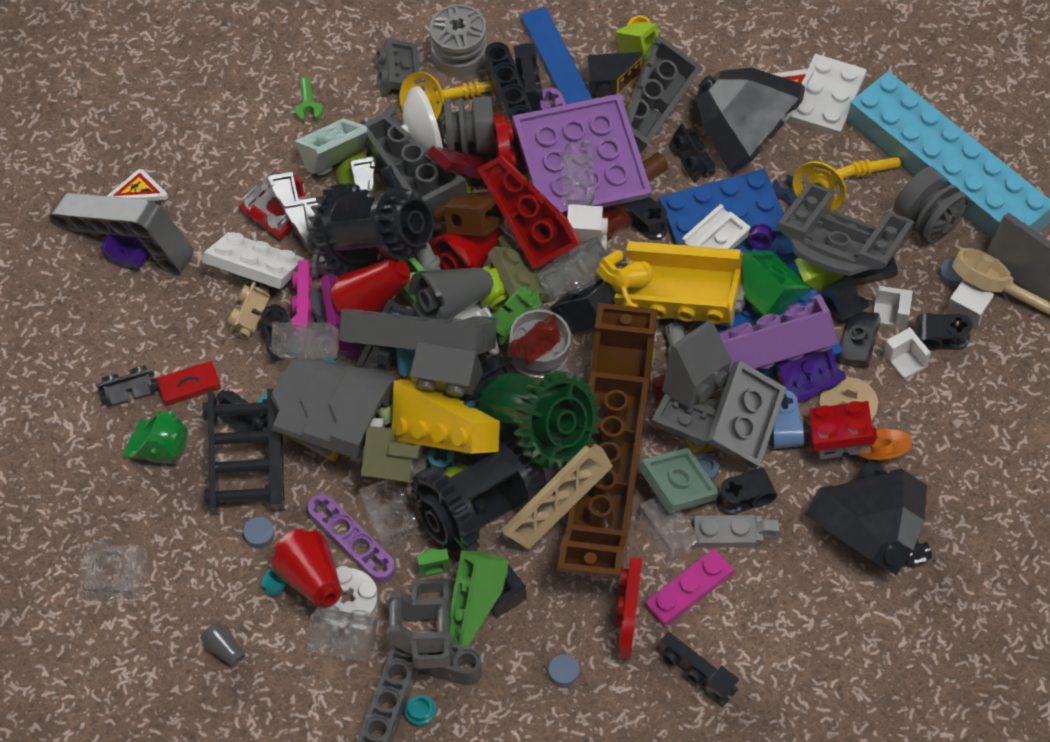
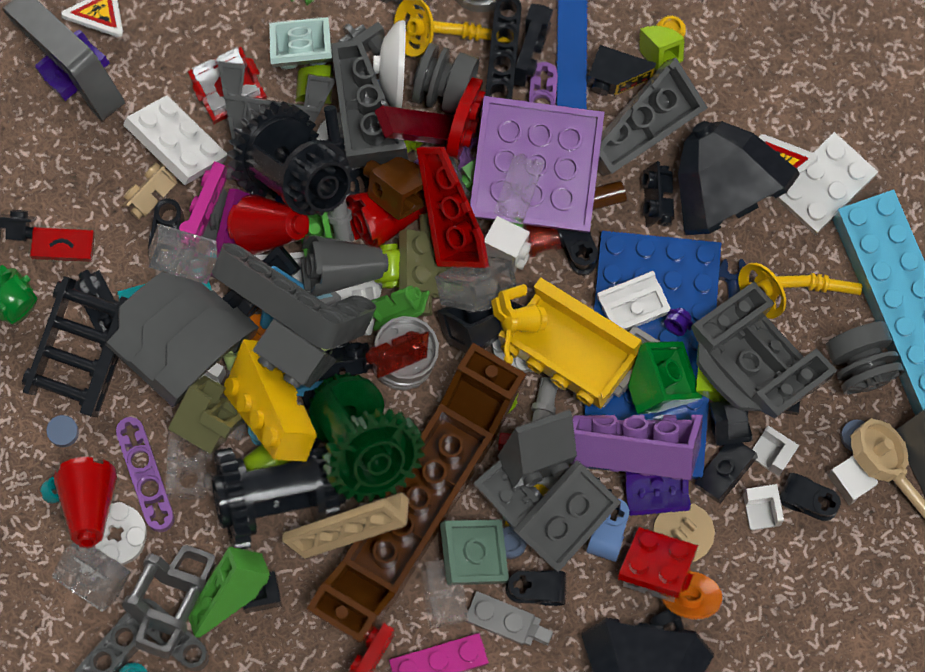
camera: 20 degrees right, 15 degrees up
(433, 562) = (208, 533): bright green plate -> none

